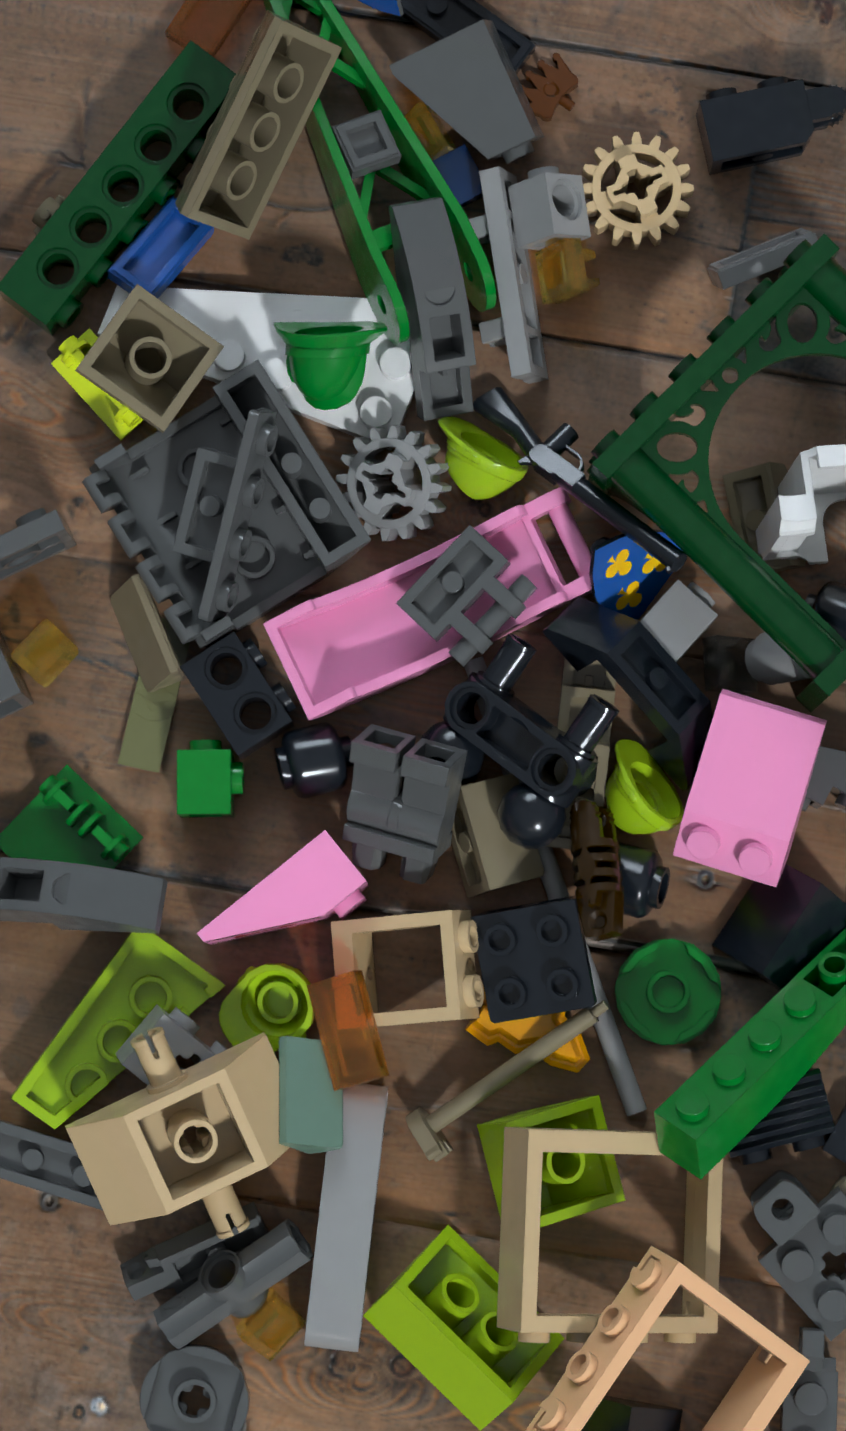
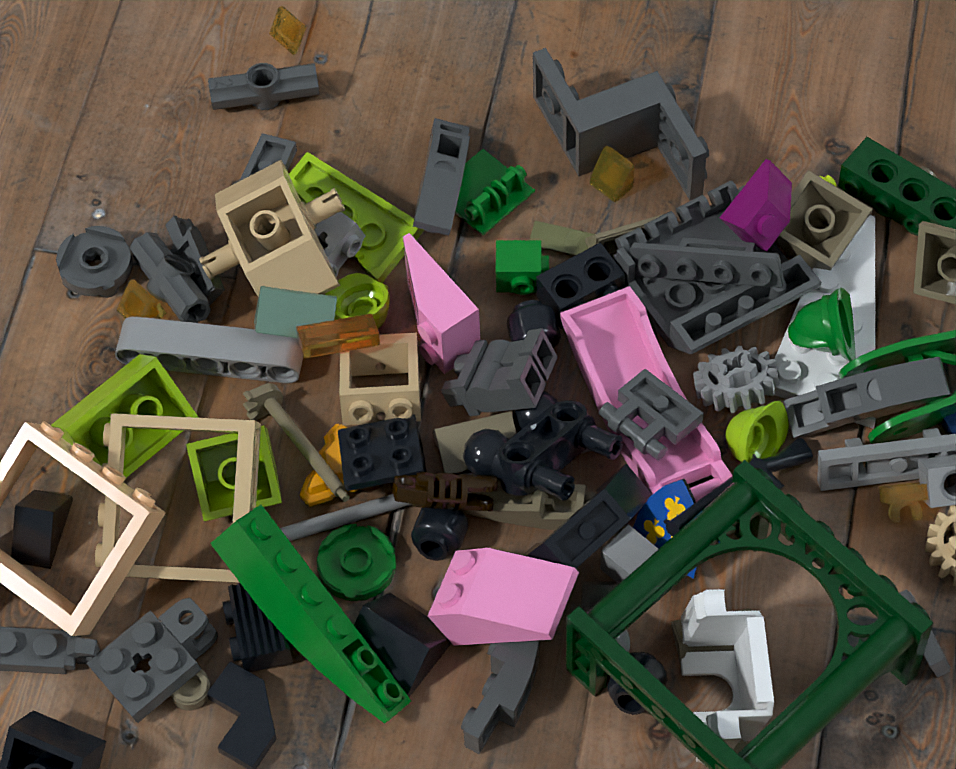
camera: 90 degrees right, 25 degrees down
(143, 435) = (761, 207): none -> magenta slope
(160, 251) = (893, 238): blue tile -> none
(641, 792) = (509, 531): lime hat -> none

